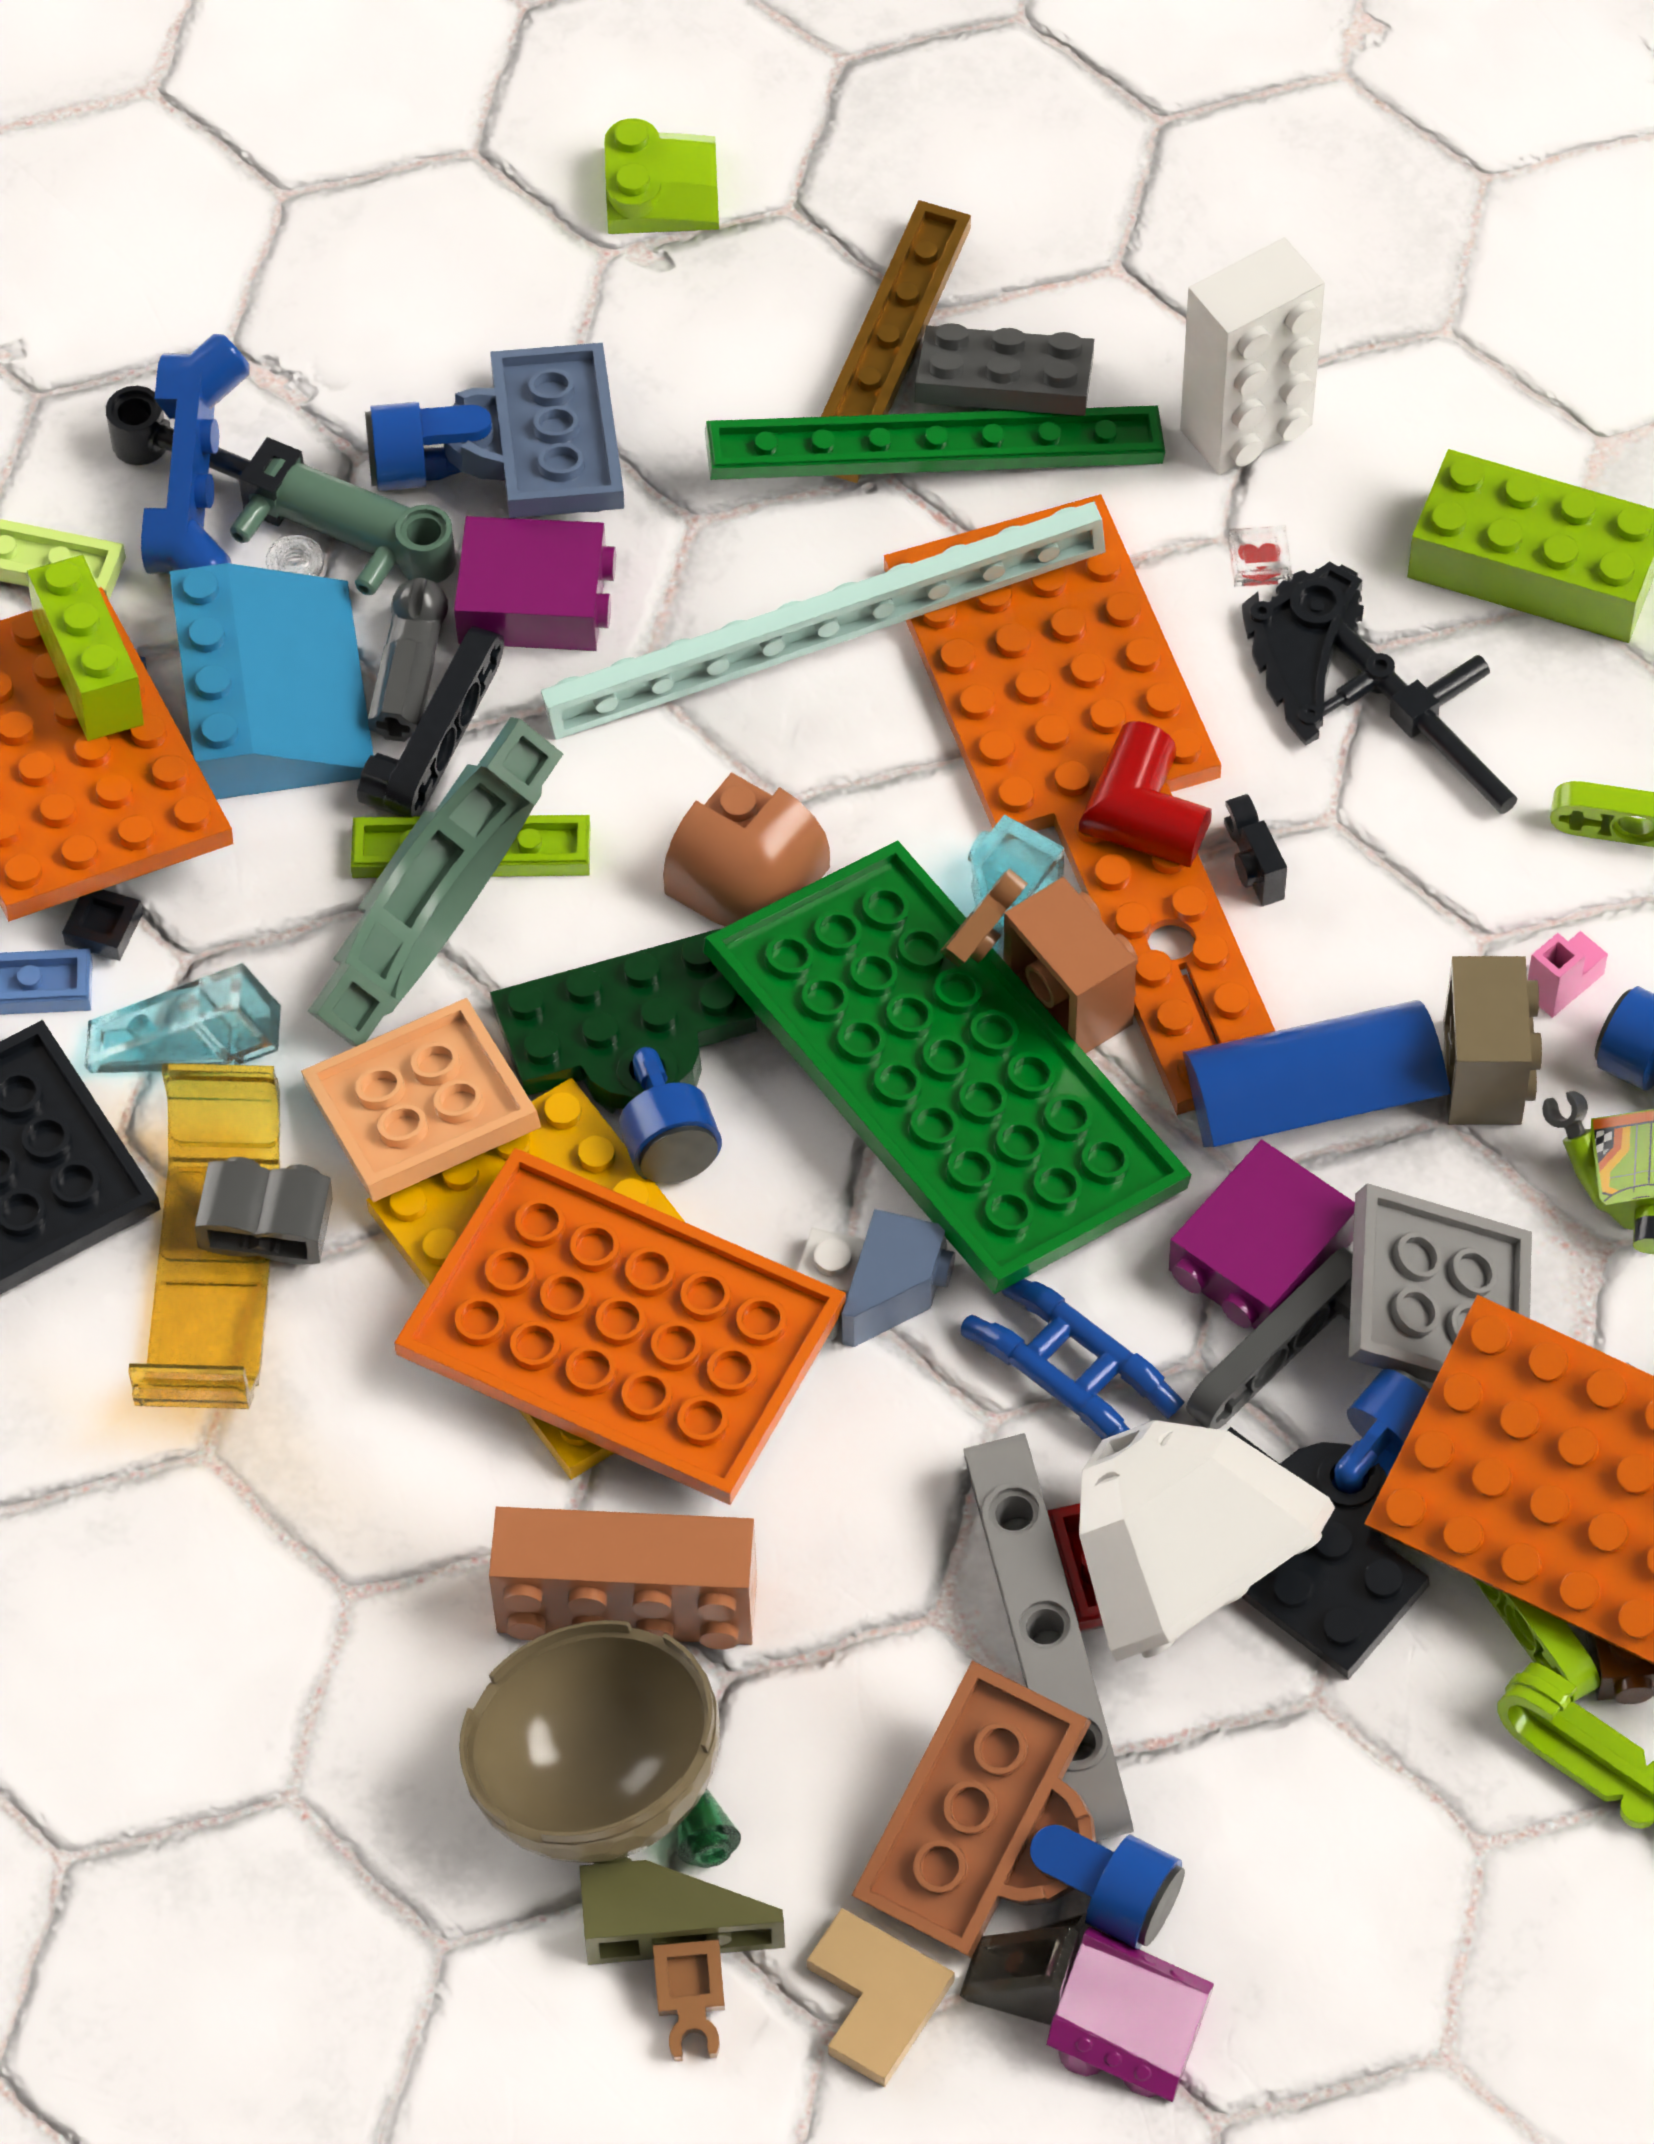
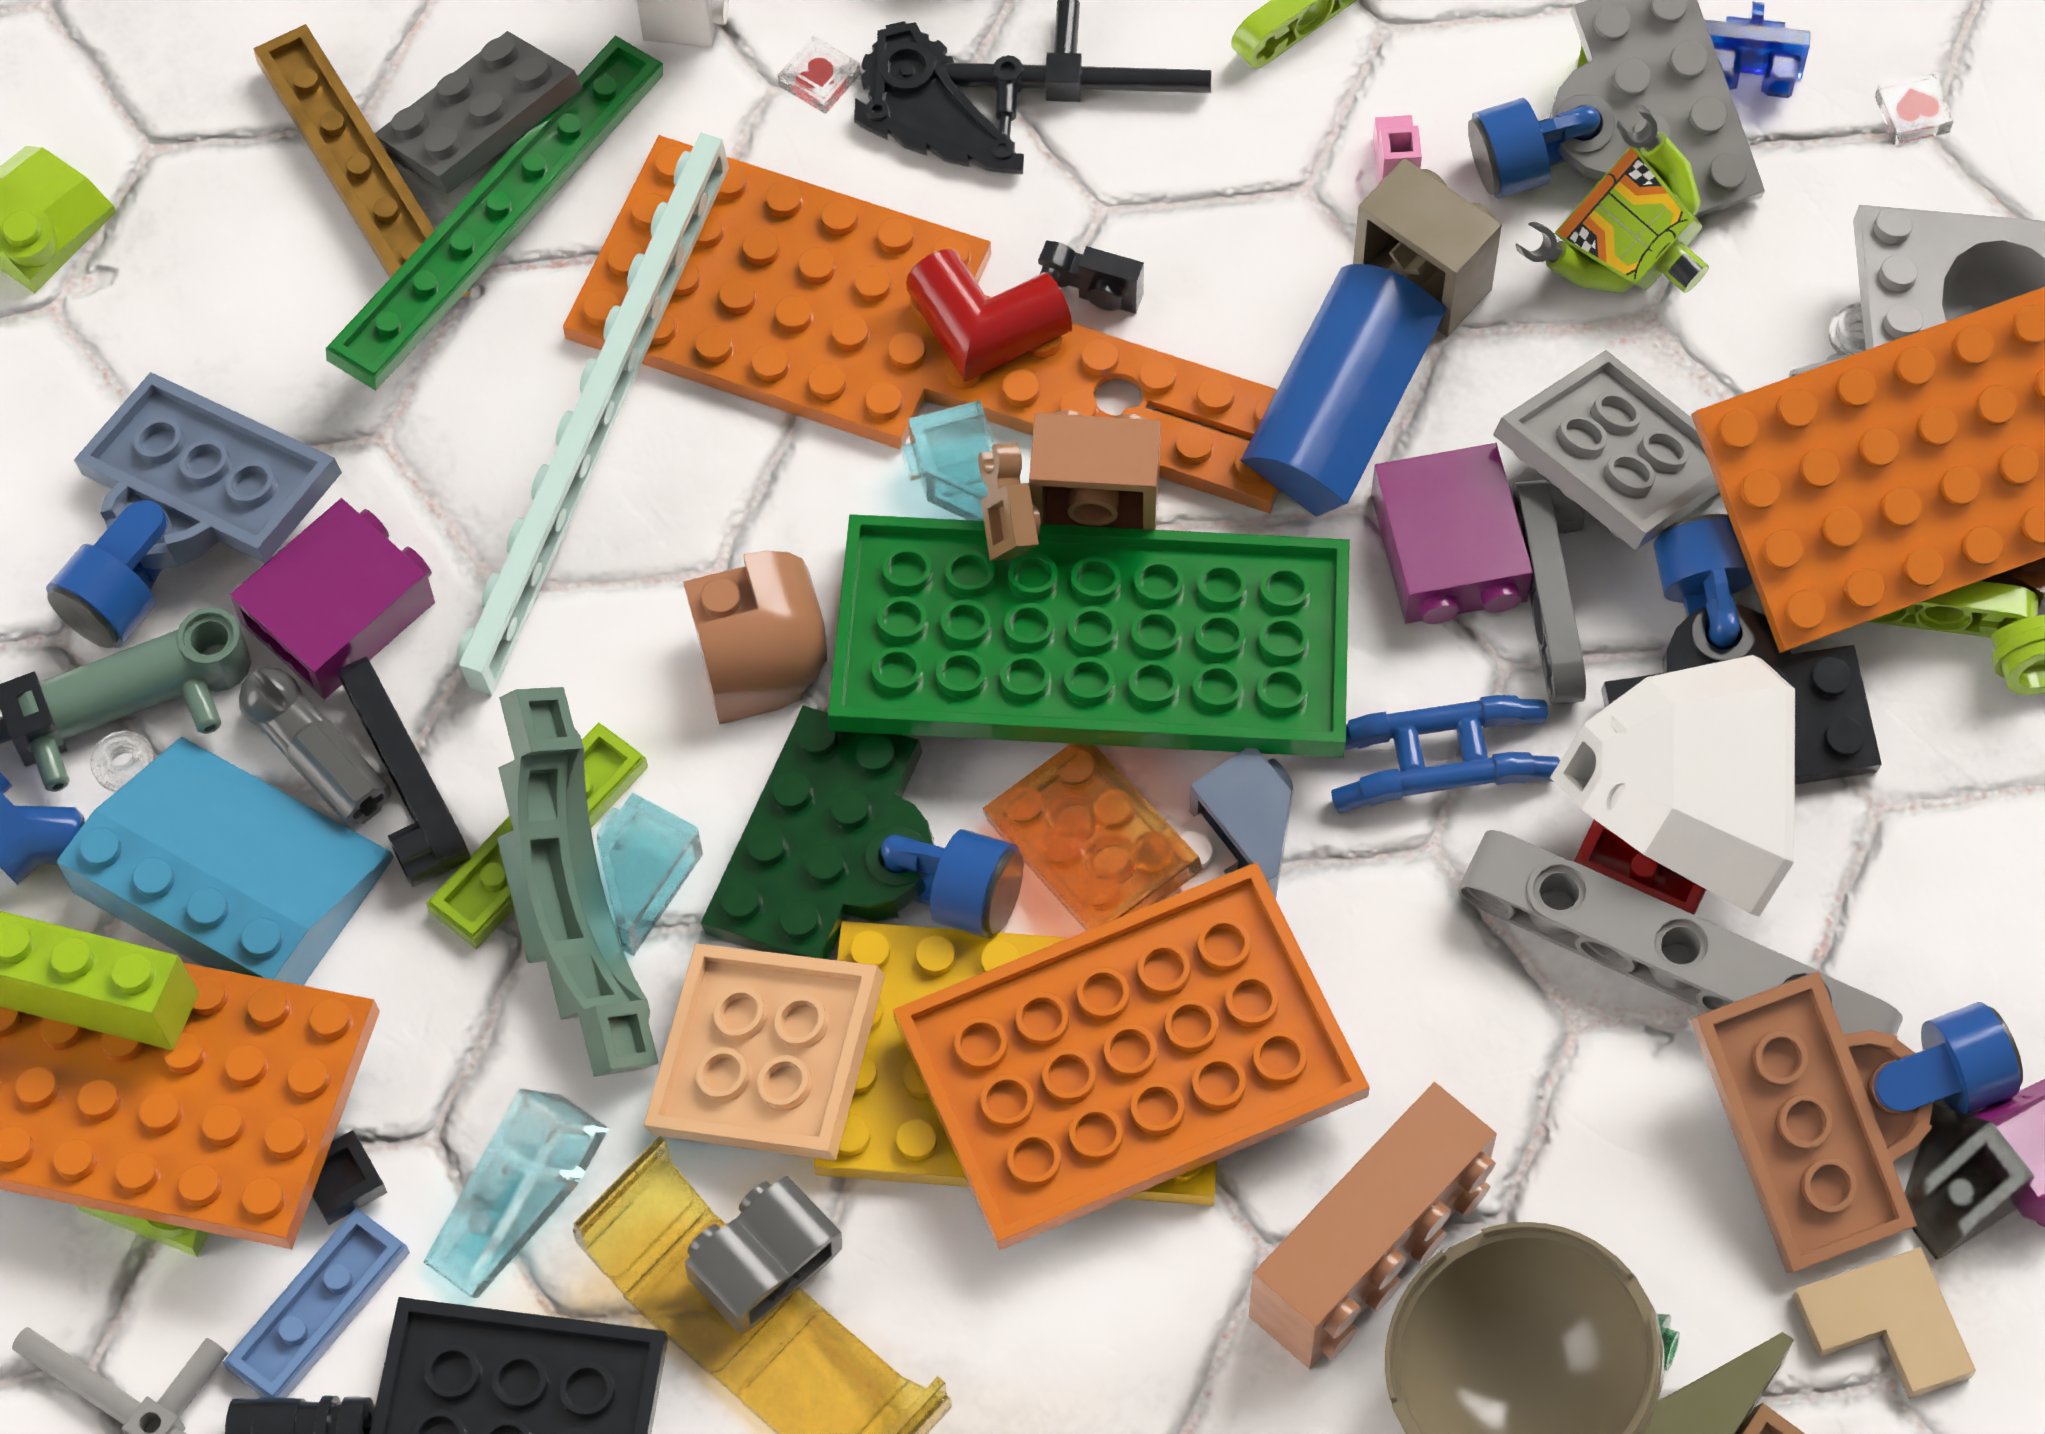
camera: 50 degrees left, 5 degrees up
(494, 925) = (644, 864): none -> clear light blue slope
(782, 1182) = (1092, 837): none -> clear orange plate

